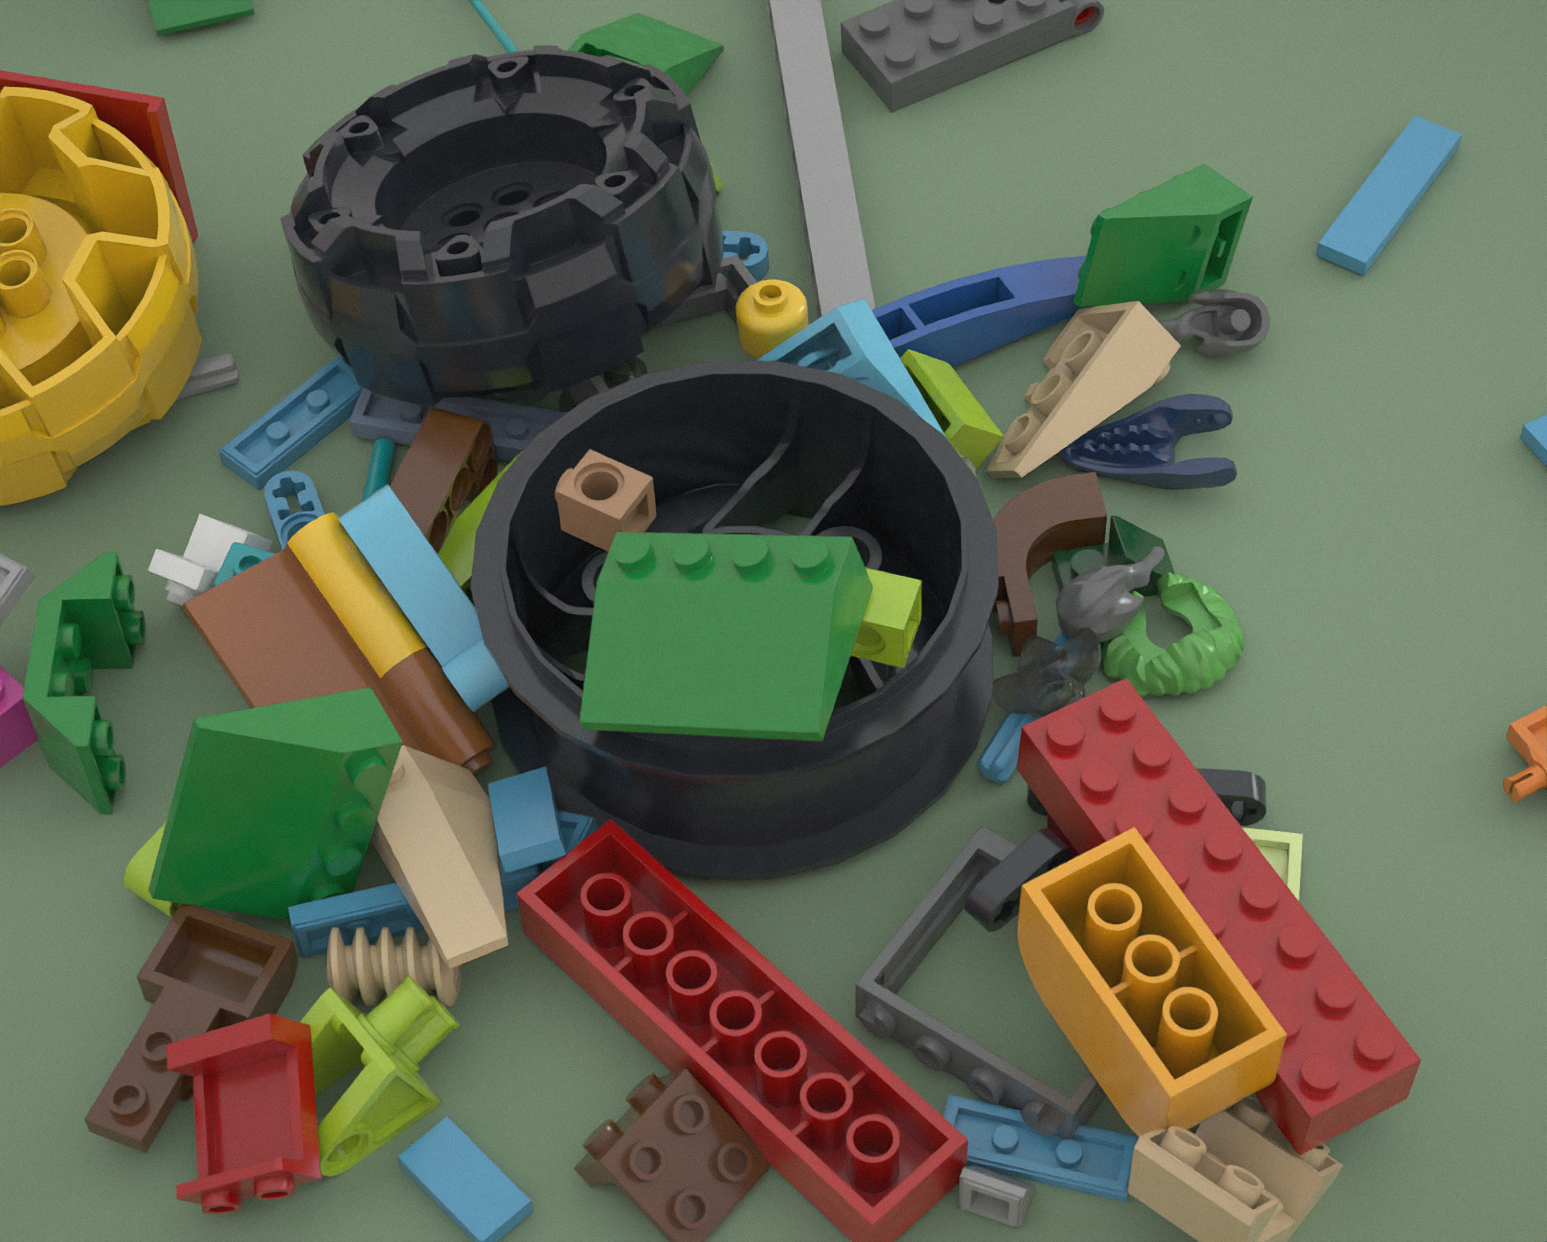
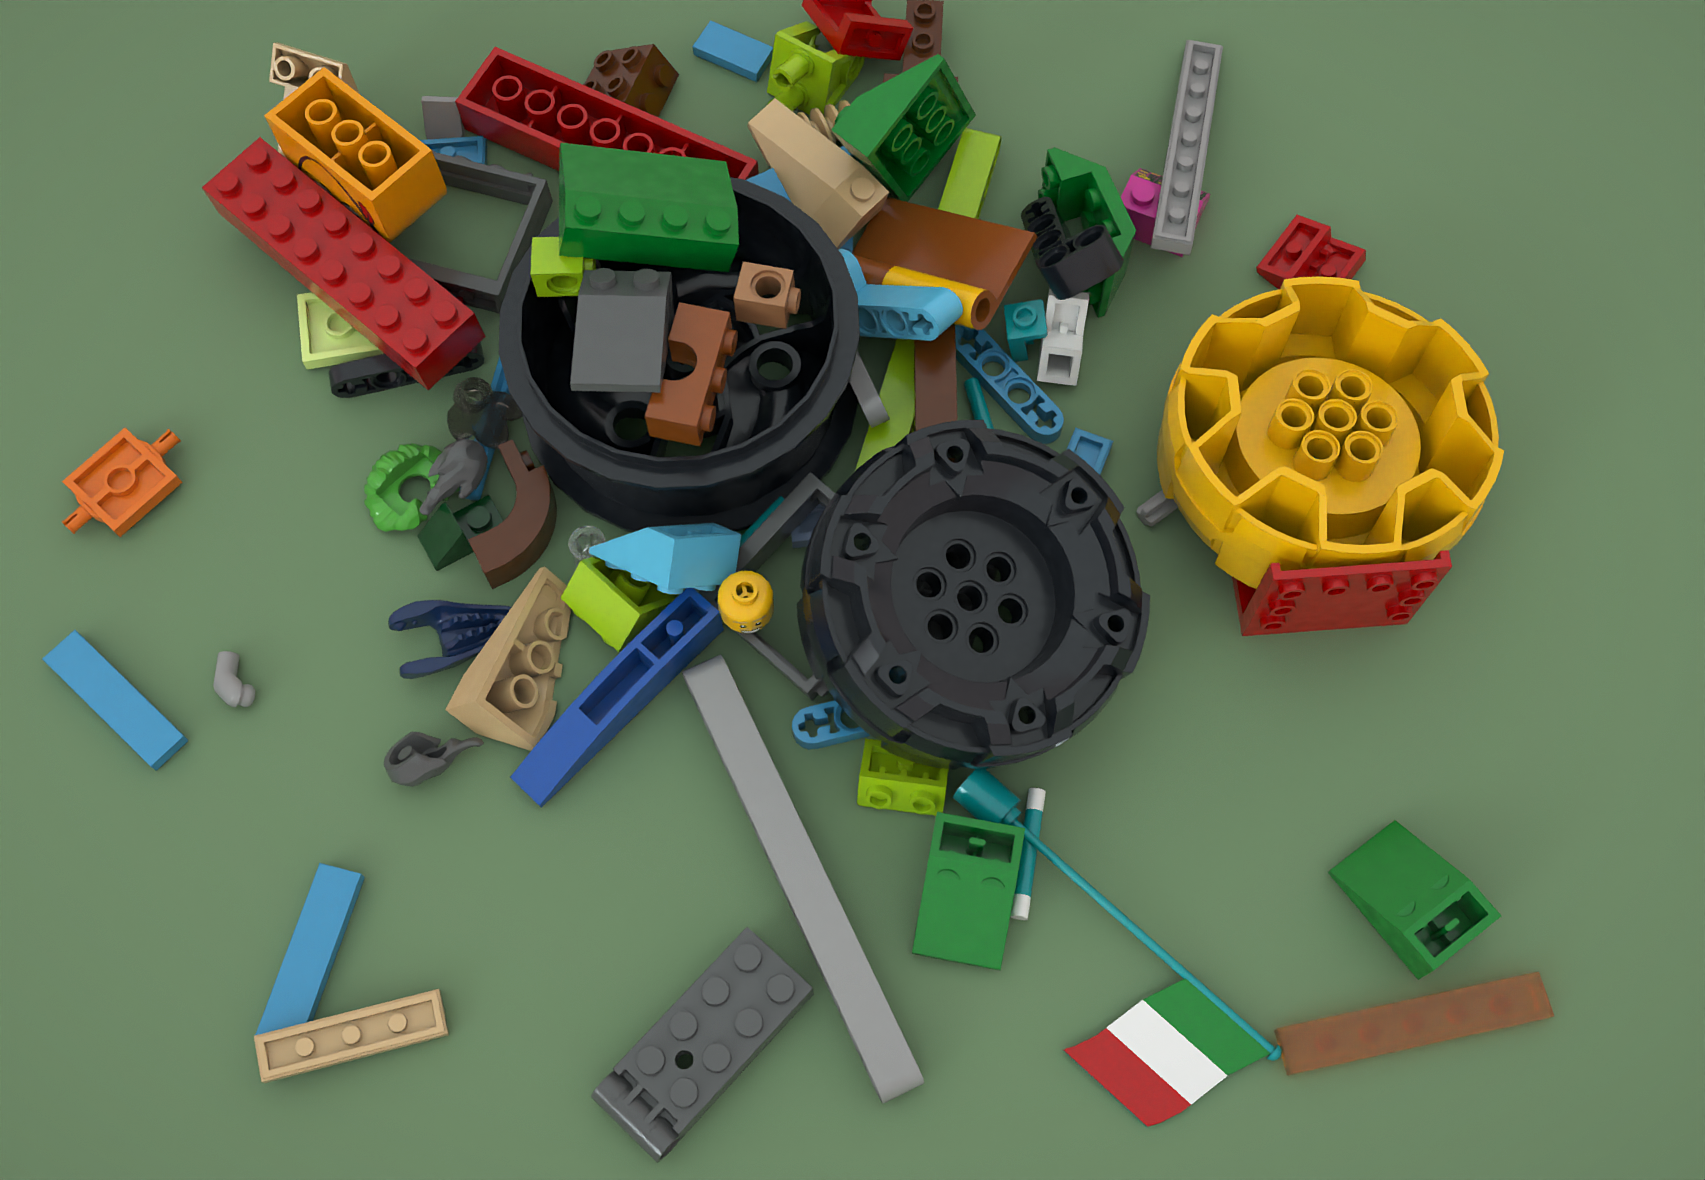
camera: 160 degrees right, 15 degrees up
(143, 638) = (1068, 261): none -> black beam
(766, 397) = (684, 406): none -> dark orange arch
(819, 462) = (622, 331): none -> dark grey slope
(998, 894) = (461, 250): black beam -> none
(1164, 242) = (464, 799): green slope -> none
(1352, 109) = (350, 1035): none -> tan tile
(1463, 473) = (227, 683): none -> light grey arm

